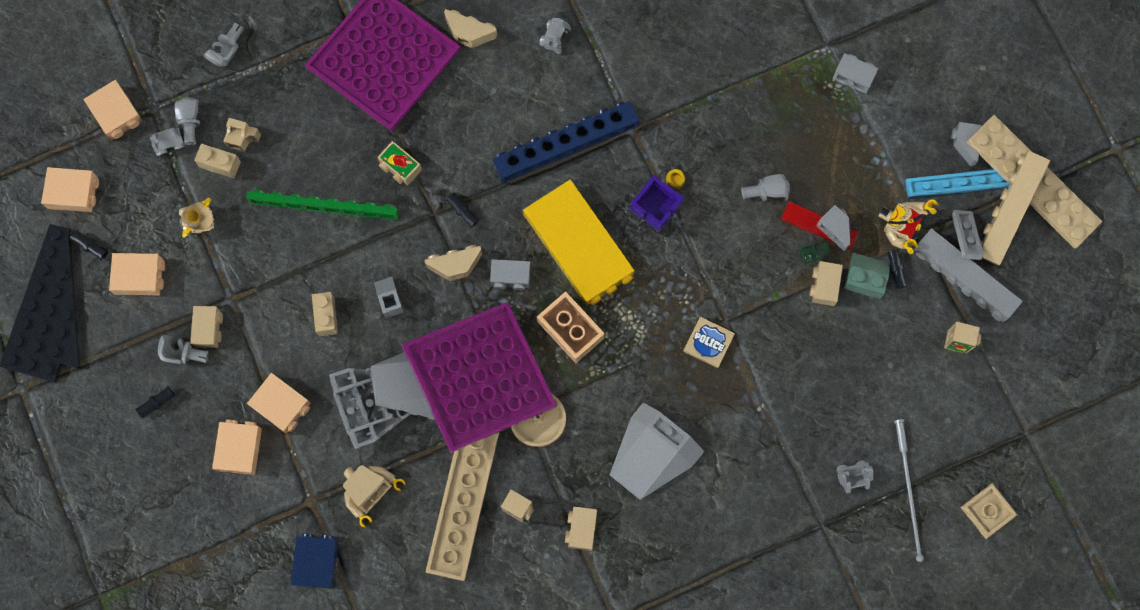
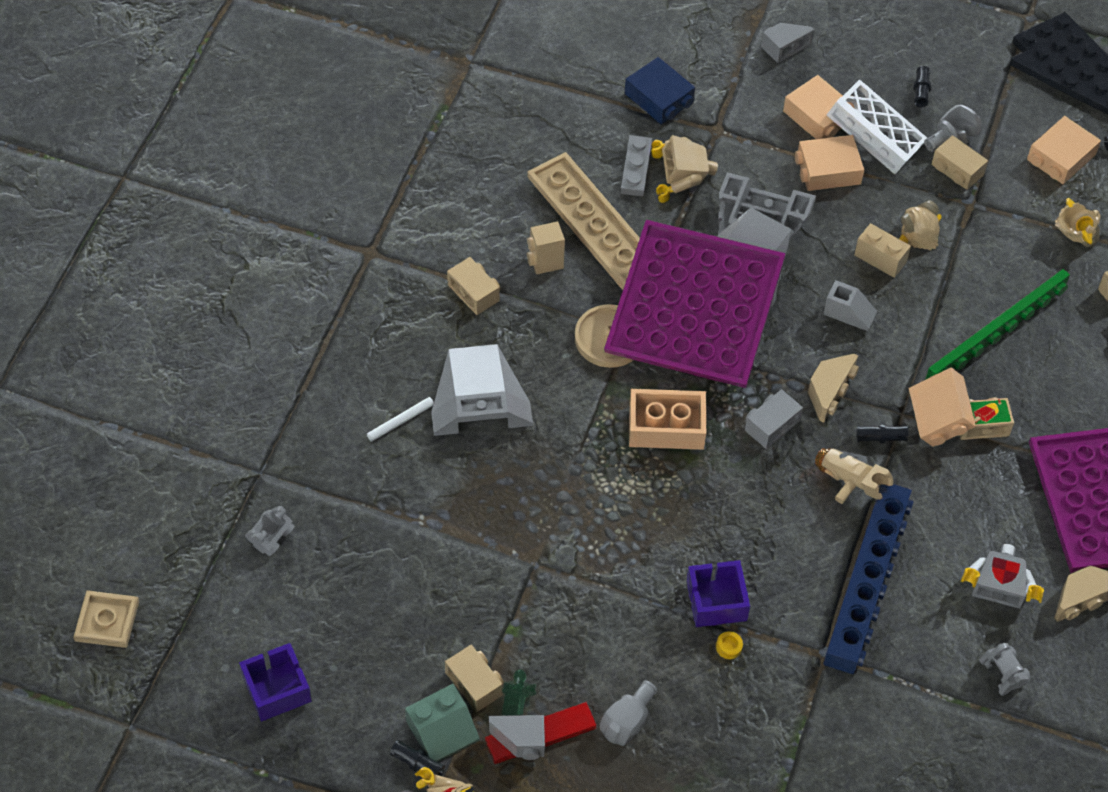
camera: 130 degrees right, 20 degrees down
(193, 521) = (786, 40): none -> light grey slope
(237, 391) = (870, 134): none -> white fence
(283, 308) = (921, 226): none -> tan hair
(390, 522) = (636, 165): none -> light grey plate
(419, 185) = (942, 407): none -> light nougat brick
(501, 74) = (1003, 578): none -> torso
(508, 199) = (854, 472): none -> tan piece
(579, 243) = (747, 499): yellow brick -> none
(708, 342) = (530, 528): tile -> none
(712, 481) = (400, 419): none -> white bar
(903, 449) = (245, 599): light grey piece -> none
(935, 376) = (277, 688): none -> dark purple piece
(962, 337) = (282, 741): tan brick -> none

